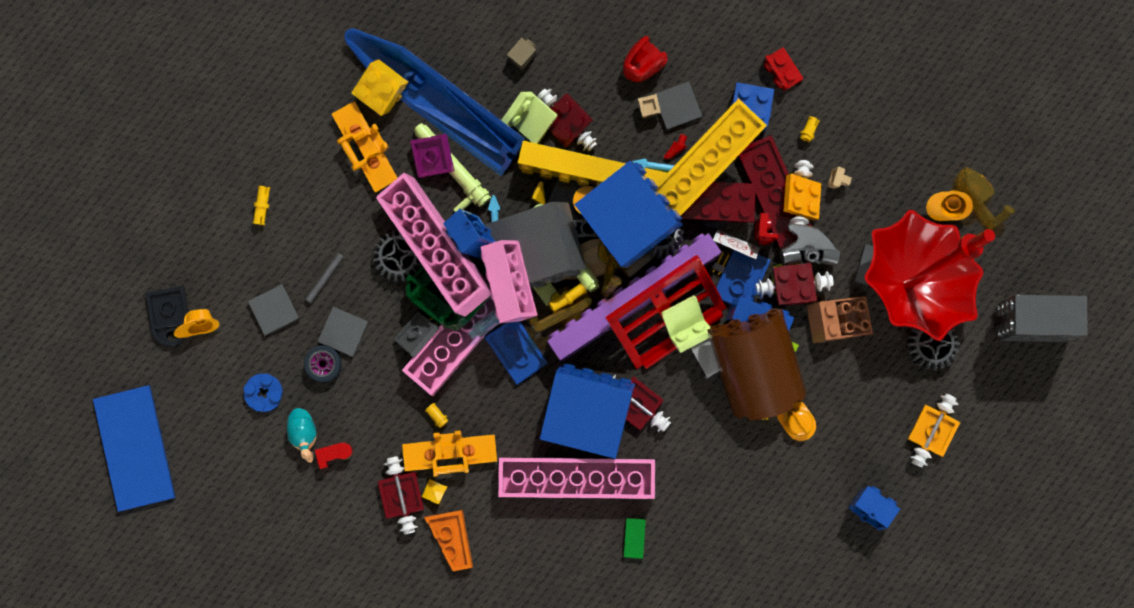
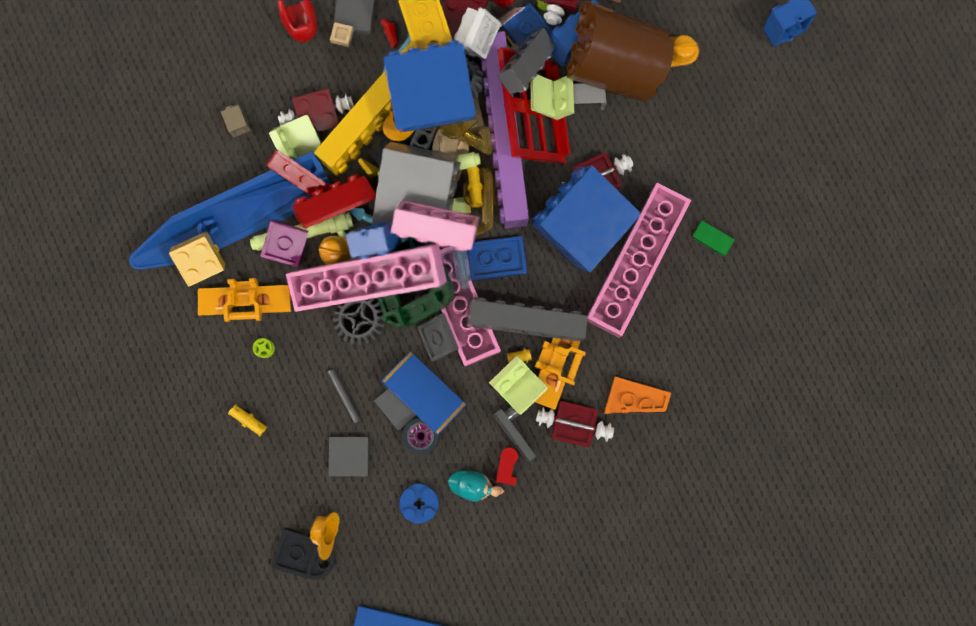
camera: 70 degrees left, 0 degrees up
(329, 183) = (260, 346): none -> lime wheel
(361, 347) = (423, 393): none -> blue slope
(373, 430) = (504, 419): none -> dark grey piece
(410, 427) = (518, 385): none -> yellowish green bracket
(434, 491) = (585, 393): yellow slope -> none
(449, 201) = (334, 250): none -> light orange piece
(469, 405) = (526, 320): none -> dark grey brick
(489, 179) = (333, 201): none -> red slope
(497, 142) = (295, 173): none -> tile
(701, 286) = (527, 61): none -> dark grey brick
(703, 228) = (477, 32): none -> white bracket

